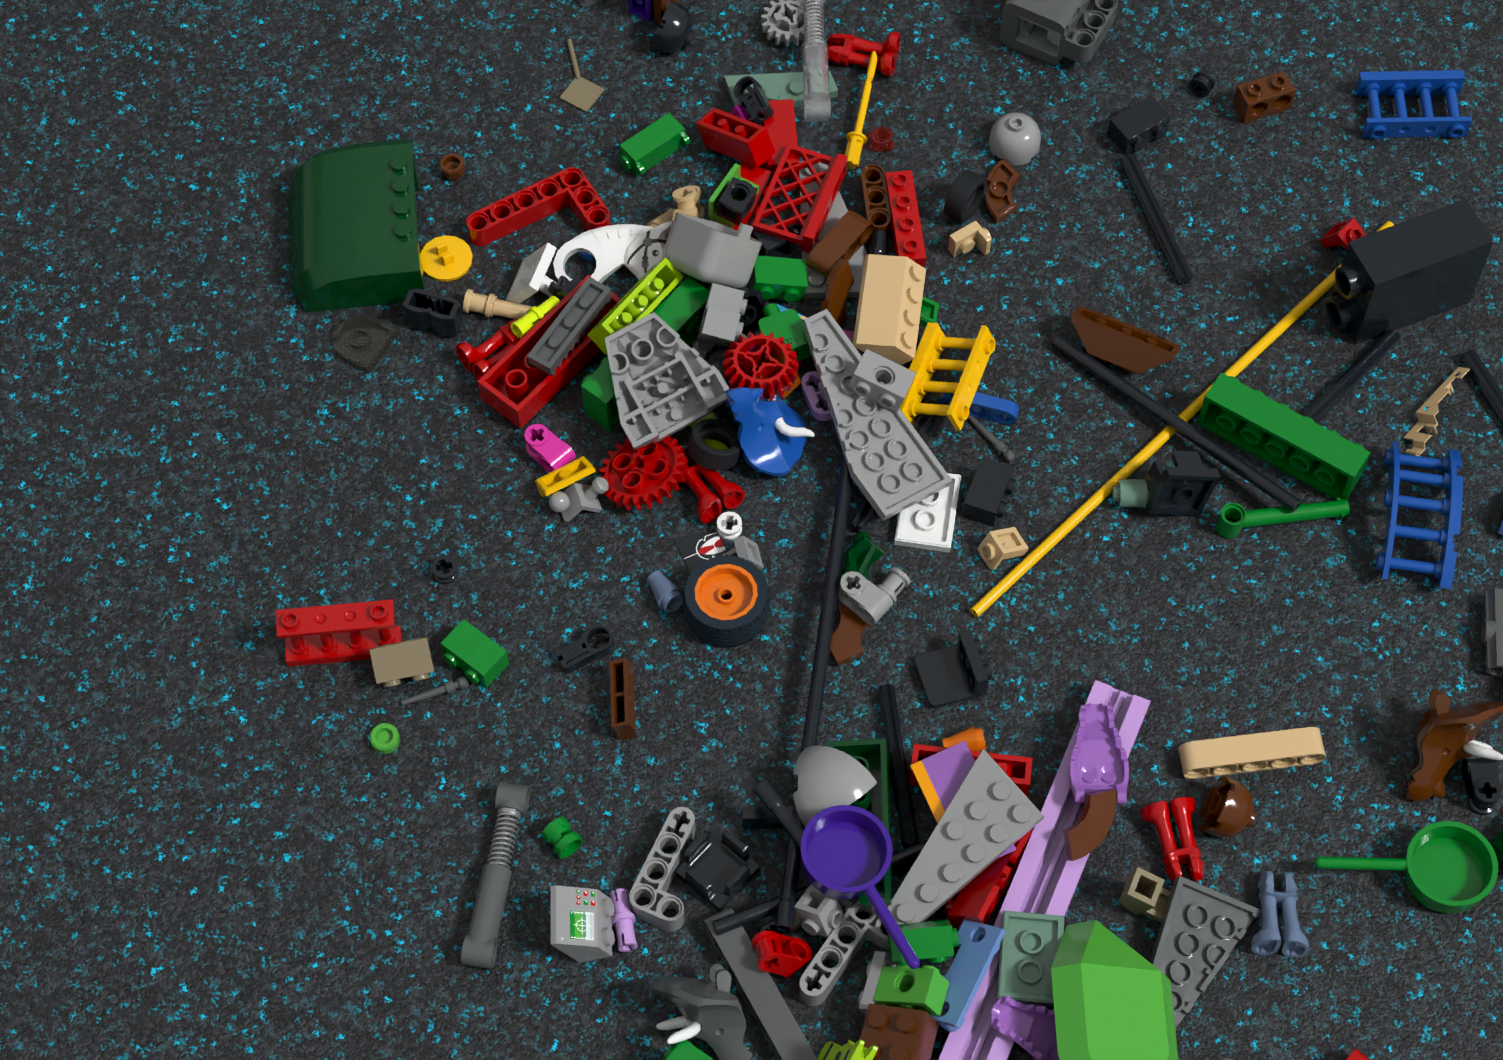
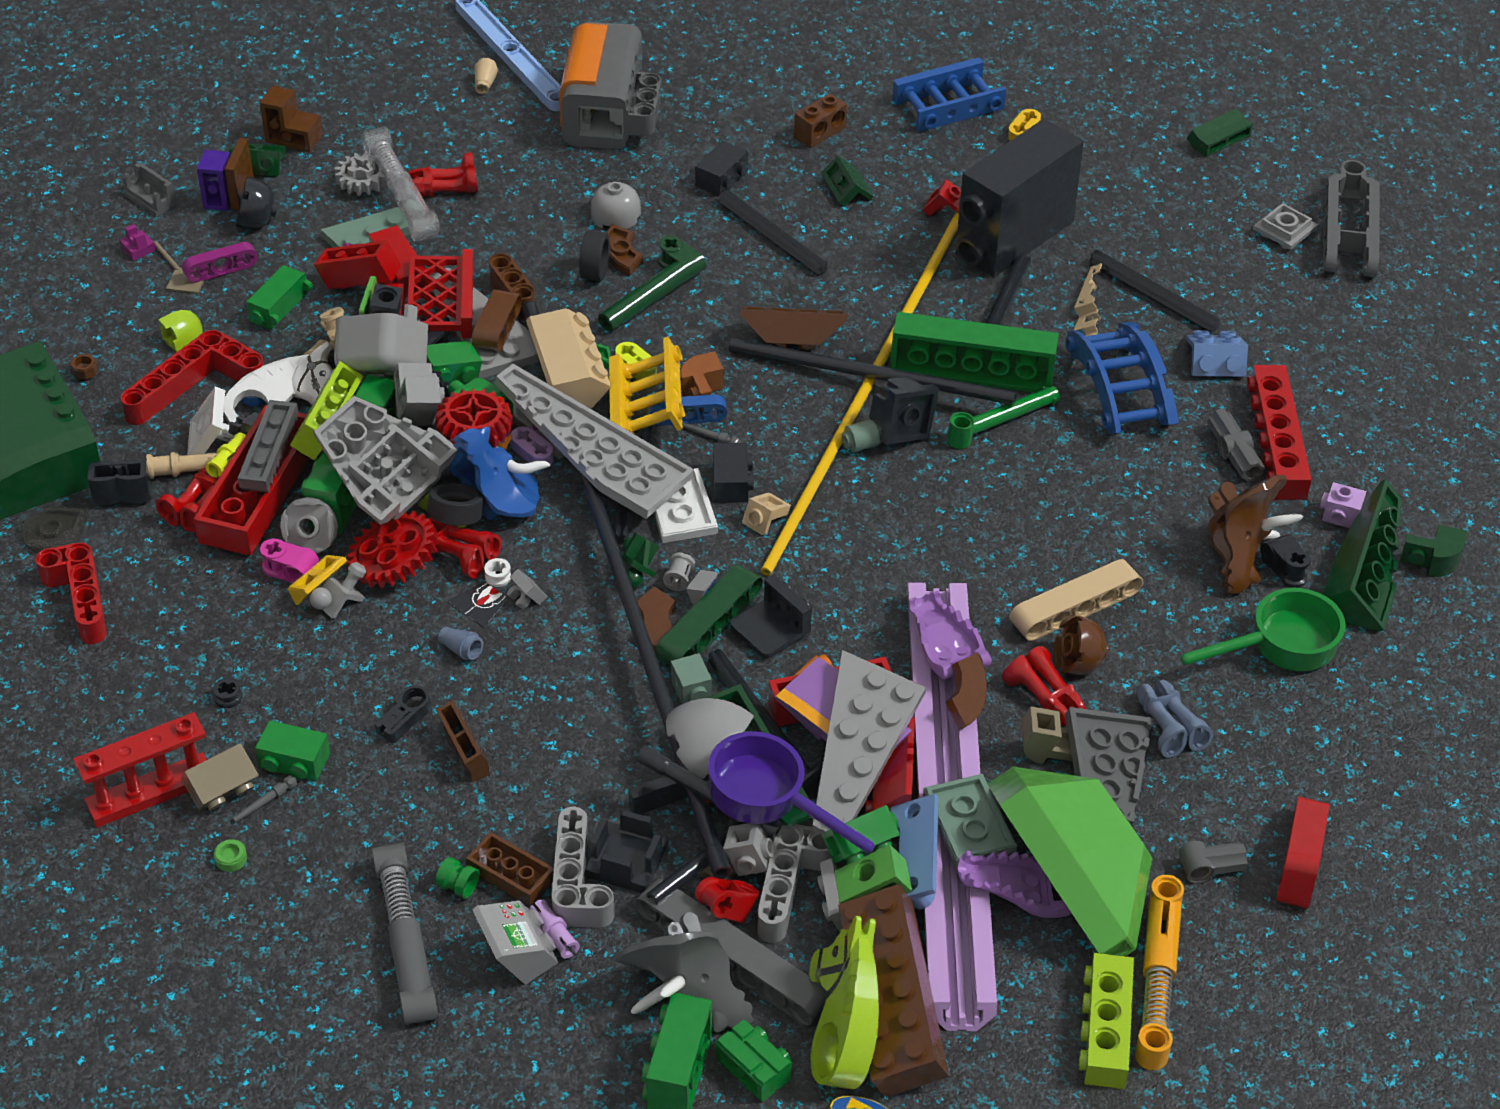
camera: 25 degrees left, 15 degrees down
(358, 421) = (76, 566): none -> red beam
(446, 258) = (115, 441): yellow piece -> none
(551, 36) = (136, 243): none -> magenta tile
(553, 153) = (180, 328): none -> lime brick
(590, 418) = (322, 517): none -> light grey tile
(610, 845) = (511, 869): none -> reddish brown piece
(633, 85) = (238, 263): none -> magenta beam
(726, 601) = (527, 628): wheel -> none
(755, 101) = (361, 234): black piece -> none
(838, 283) = (511, 348): reddish brown tile -> none
(851, 709) = (691, 678): none -> sand green brick
(856, 138) = (468, 241): yellow piece -> none
(863, 598) = (660, 585): light grey piece -> none
(878, 368) = (593, 402): light grey brick -> none
(884, 134) = (493, 239): clear red plate -> none
(898, 646) = (710, 615): none -> dark green beam
(902, 613) = (701, 585): none -> light grey slope
(905, 218) = (549, 288): red brick -> none
(962, 326) = (627, 349): none -> neon yellow beam
(969, 236) = (612, 288): tan bracket -> none
(1007, 370) = (701, 375): none -> dark orange brick
(1048, 232) = (679, 266): none -> dark green axle
(1201, 84) = (760, 132): black bush -> none
(1257, 180) = (845, 181): none -> dark green panel
(1478, 172) = (1022, 122): none -> yellow beam

